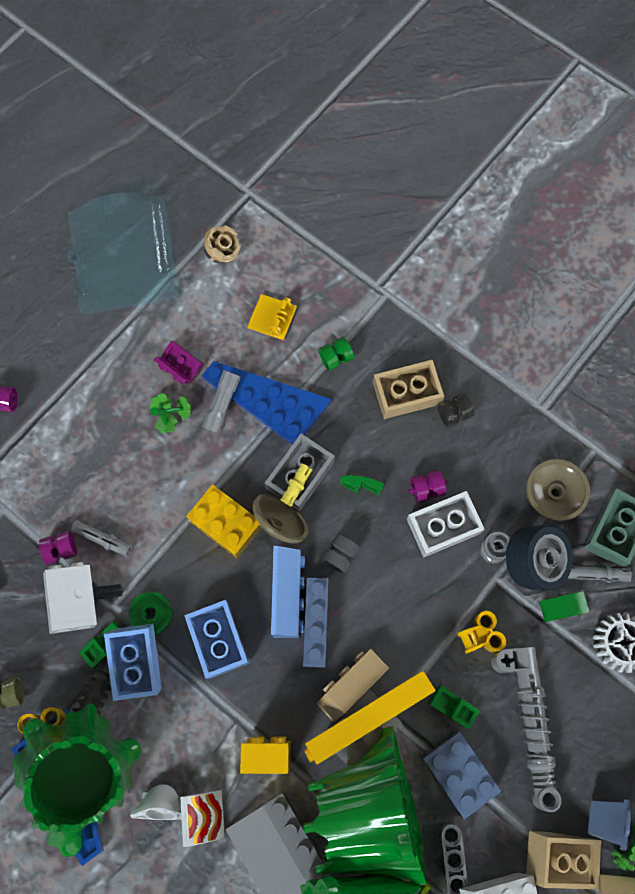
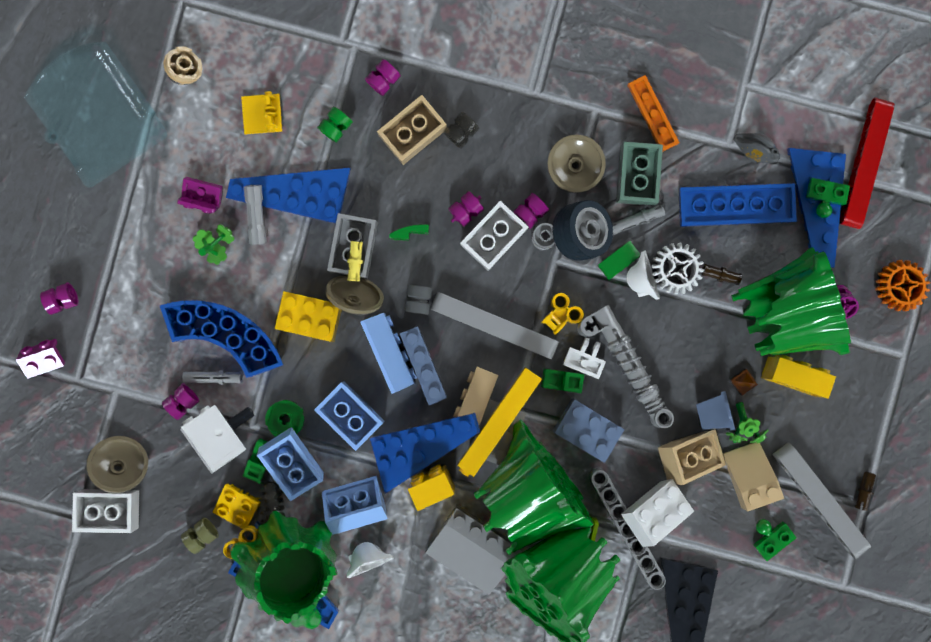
camera: 25 degrees left, 15 degrees up
(56, 681) = (236, 506): none -> yellow hinge
(138, 495) = (224, 328): none -> blue brick
(175, 739) = (353, 505): none -> light blue slope
(202, 818) = (403, 553): slope -> none
(265, 706) = (413, 449): none -> blue wing
(402, 330) = (382, 77): none -> magenta wheel
(407, 616) = (494, 325): none -> light grey beam
(485, 698) = (584, 362): none -> white hinge
(495, 515) = (531, 210): none -> magenta wheel
(580, 635) = (641, 279): none -> white hat

